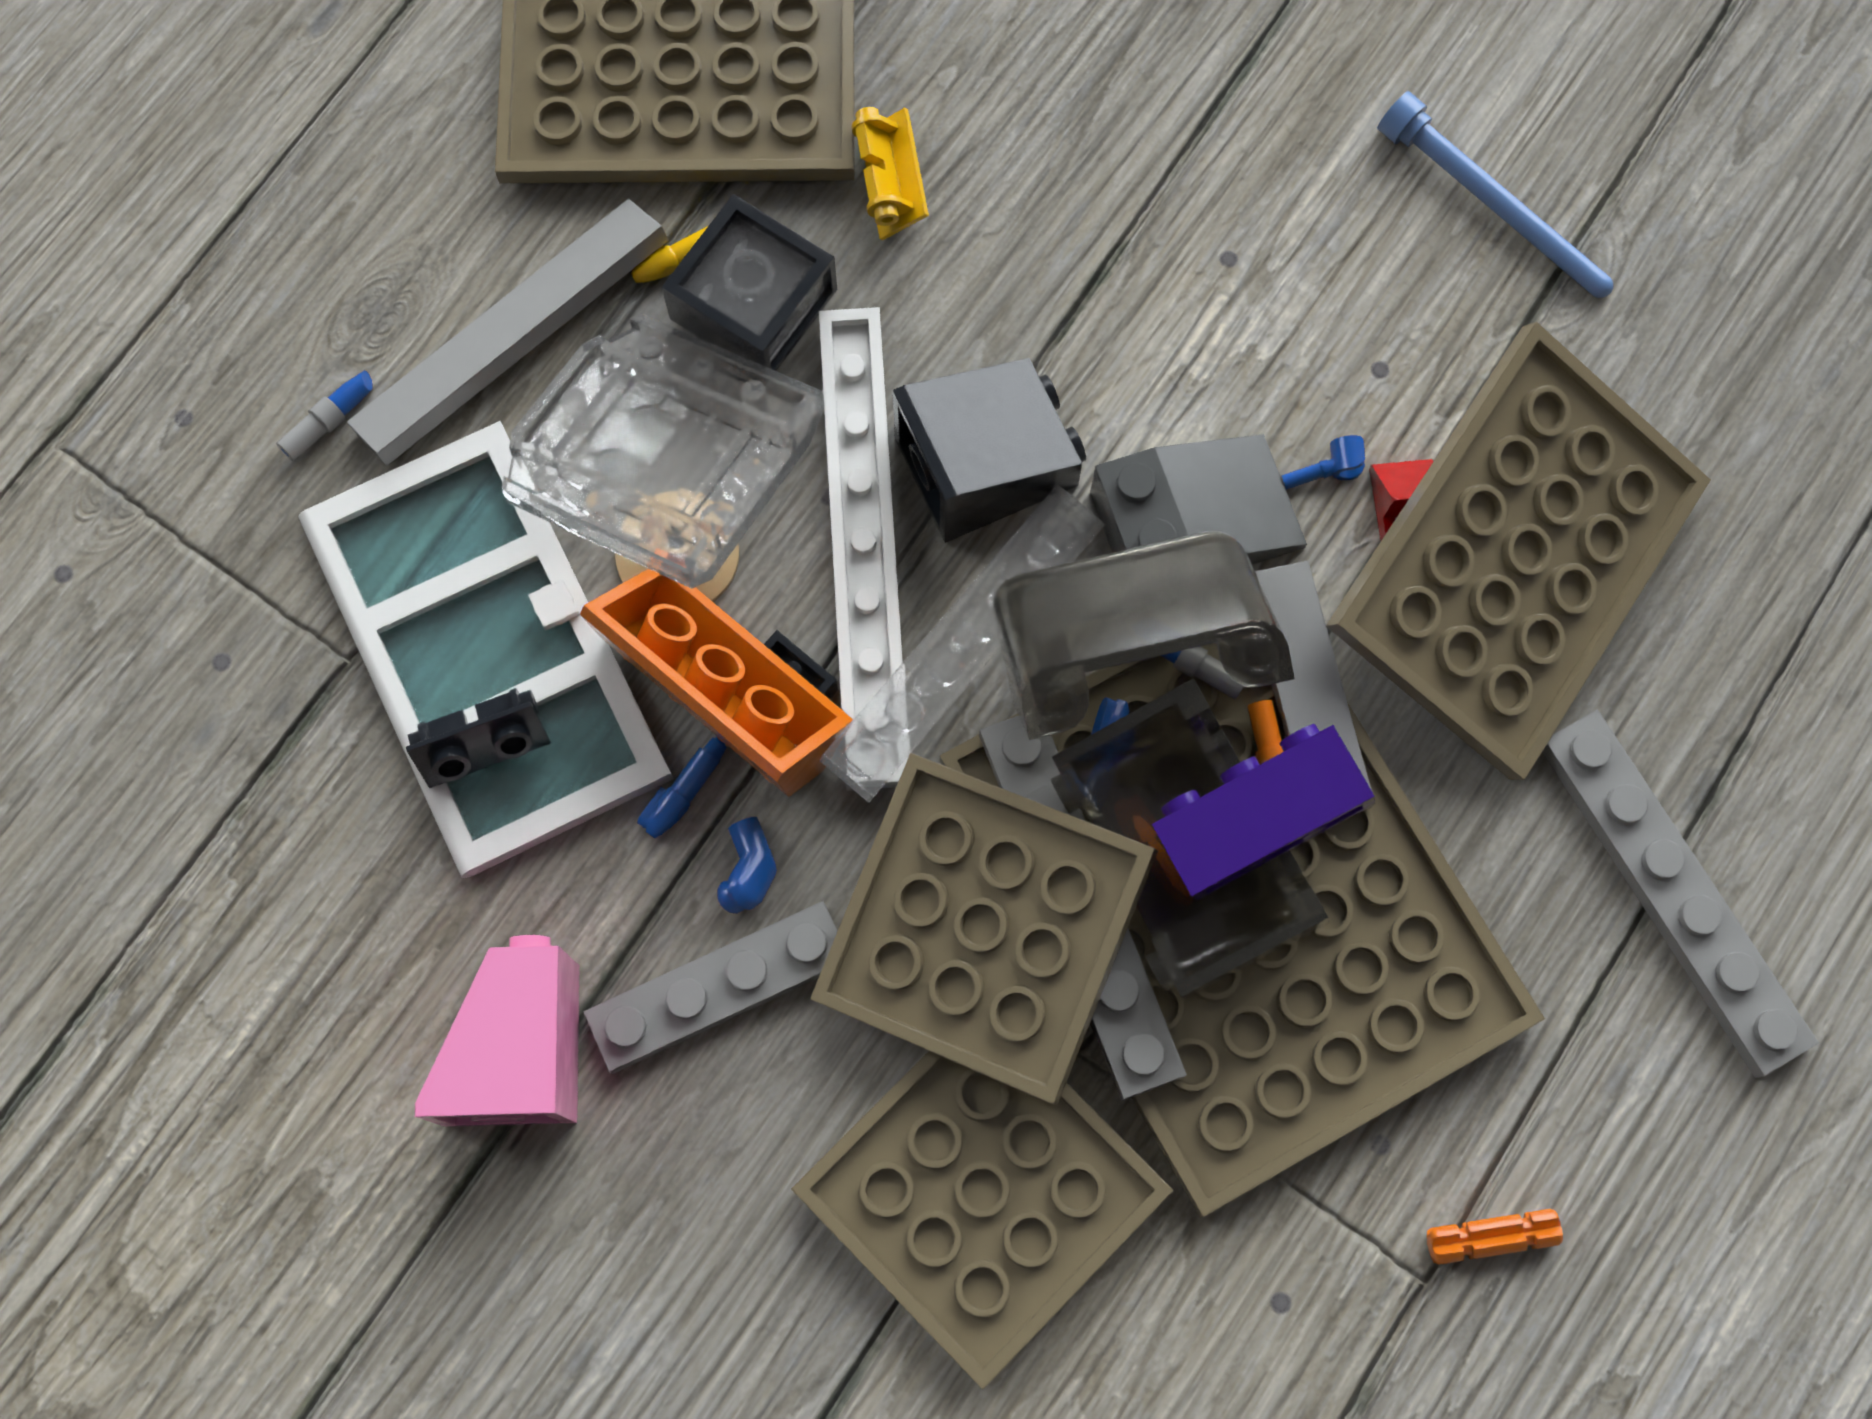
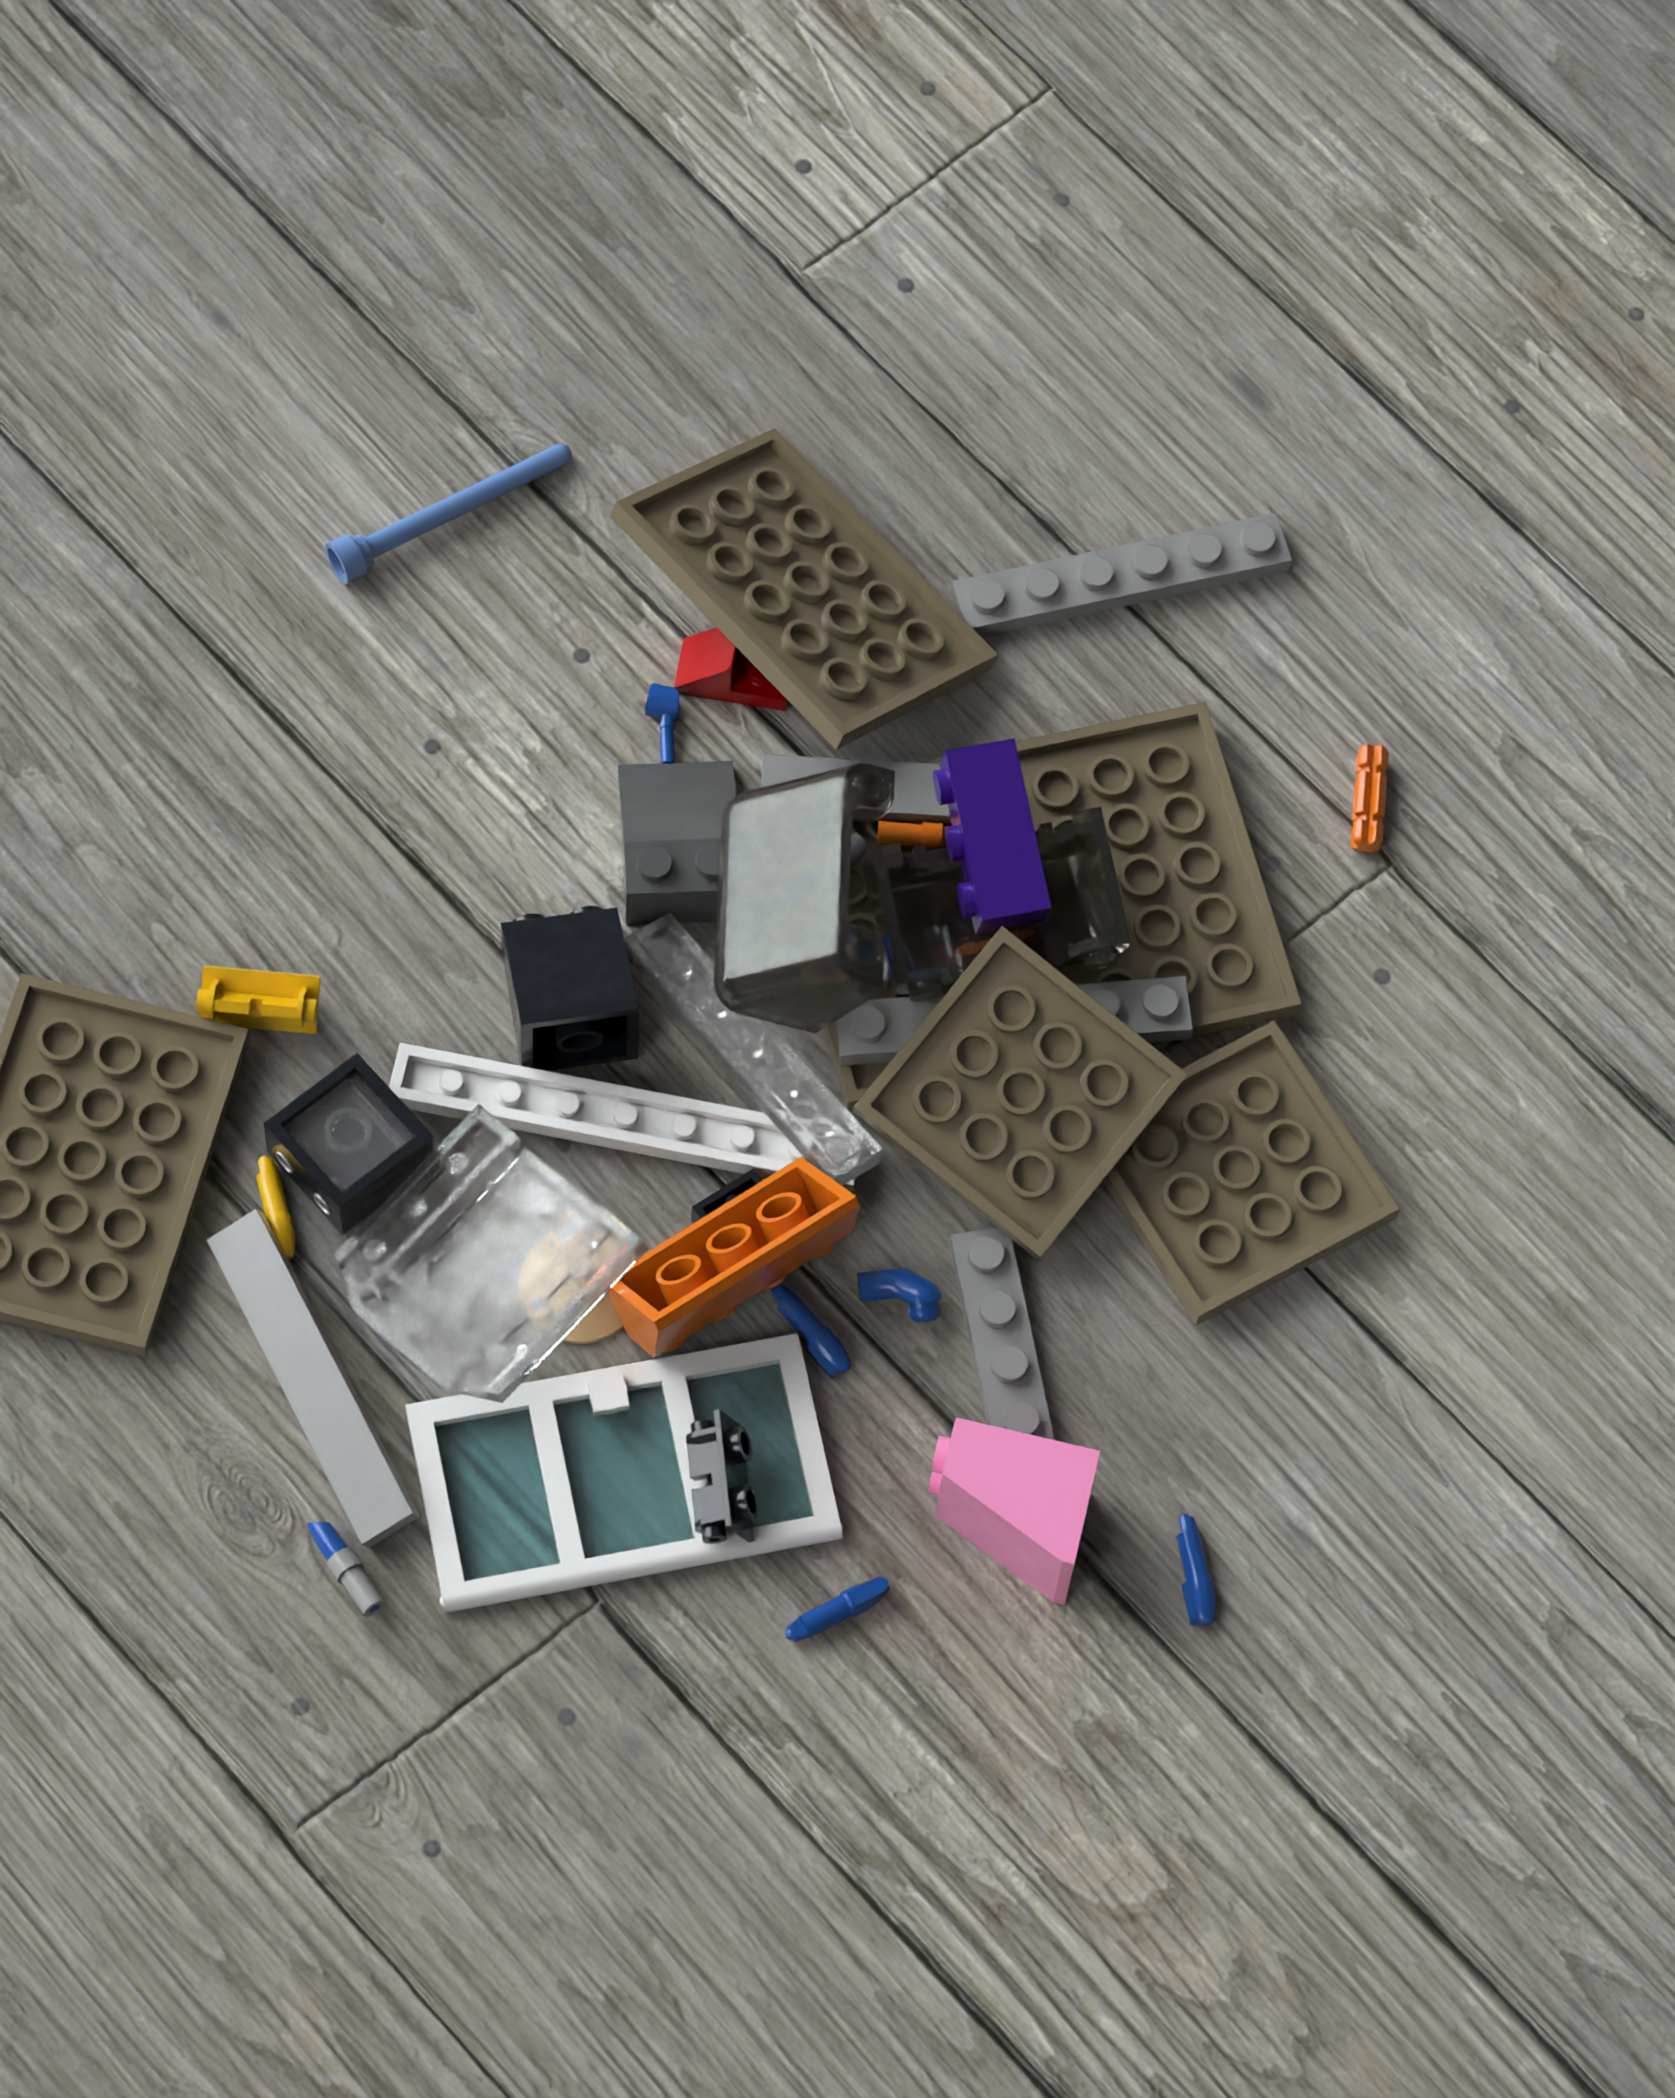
camera: 80 degrees left, 10 degrees down
(391, 902) = (846, 1605): none -> blue piece
(492, 1265) = (1198, 1588): none -> blue piece

